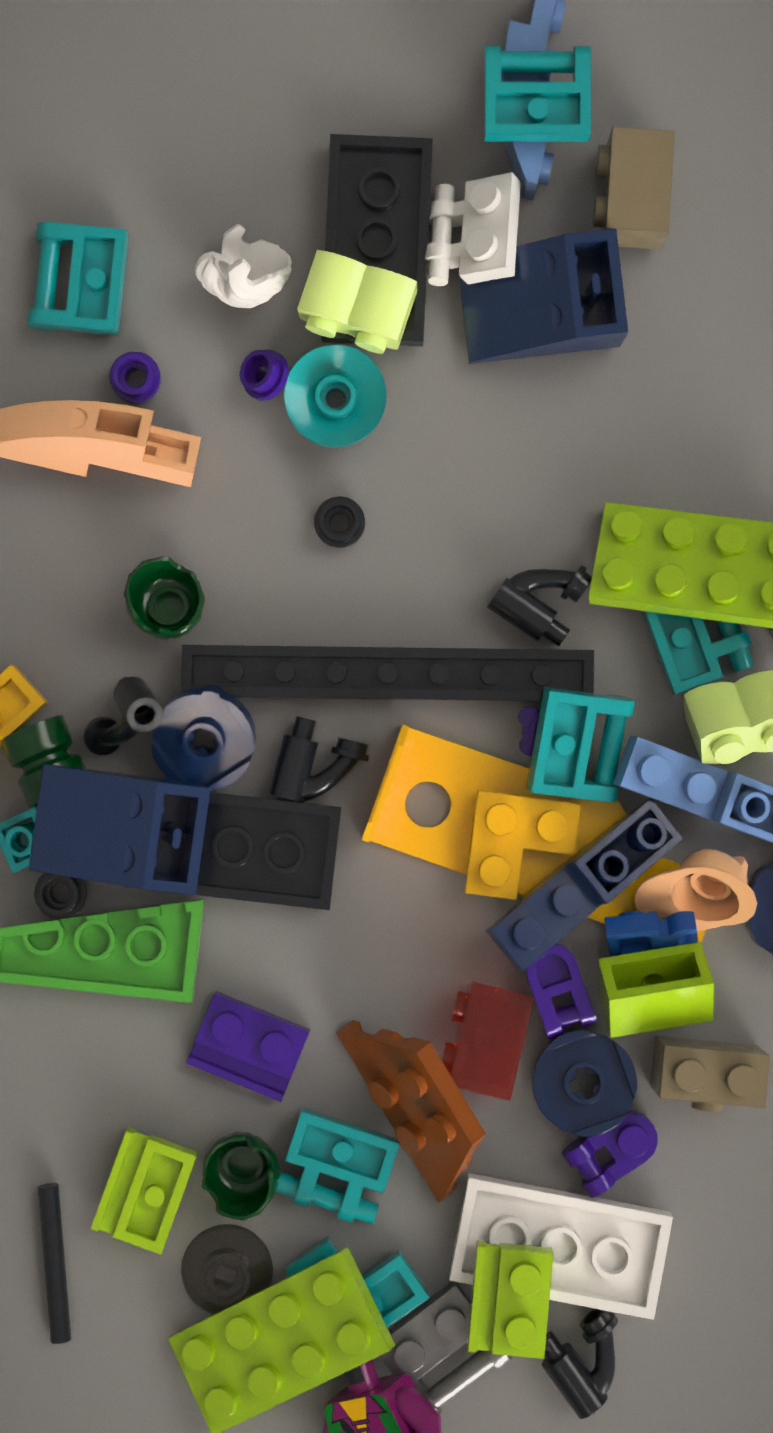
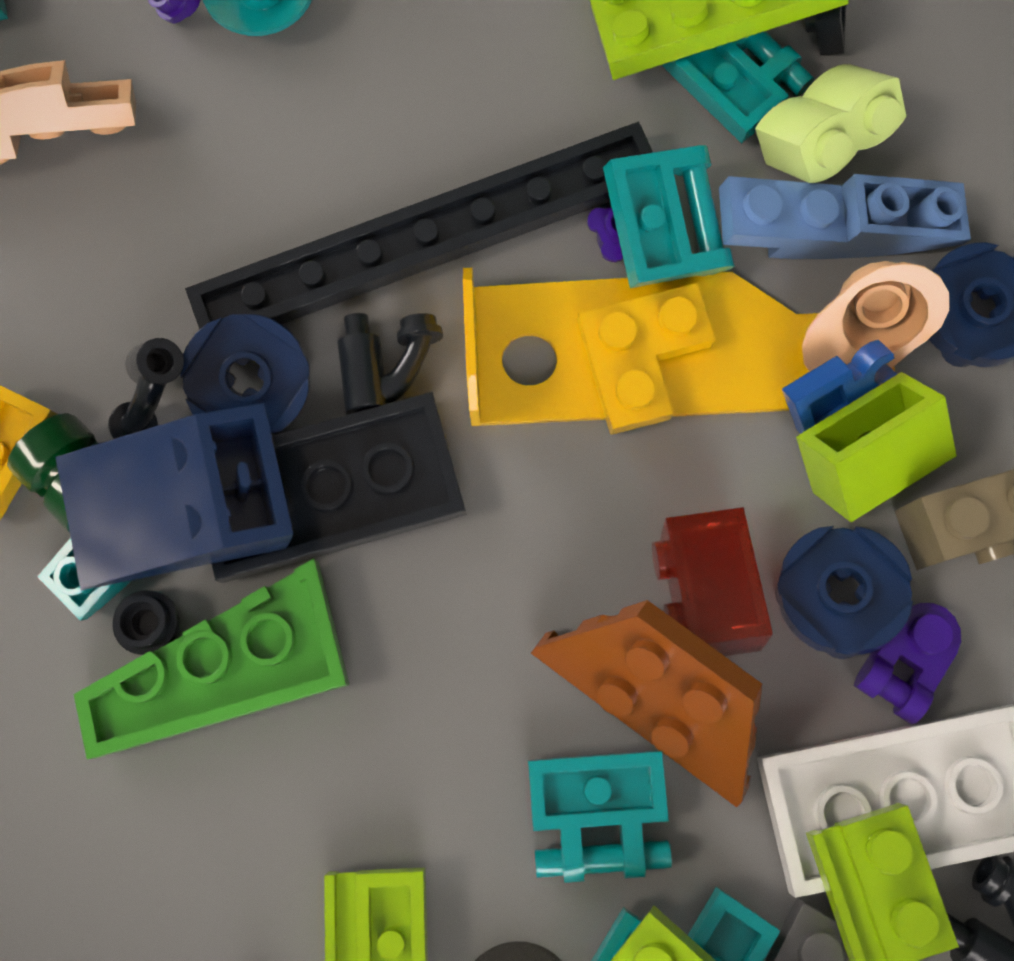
camera: 20 degrees left, 10 degrees down
(135, 362) = (34, 35): dark purple plate -> none
(164, 598) = (145, 247): dark green hair -> none
(241, 1175) = (486, 872): dark green hair -> none
(248, 1046) = (434, 713): dark purple plate -> none
(333, 507) = (309, 92): black plate -> none
(529, 613) = (555, 118): black plant -> none
(553, 975) = (748, 479): dark purple plate -> none
(583, 884) = (741, 365): dark blue slope -> none

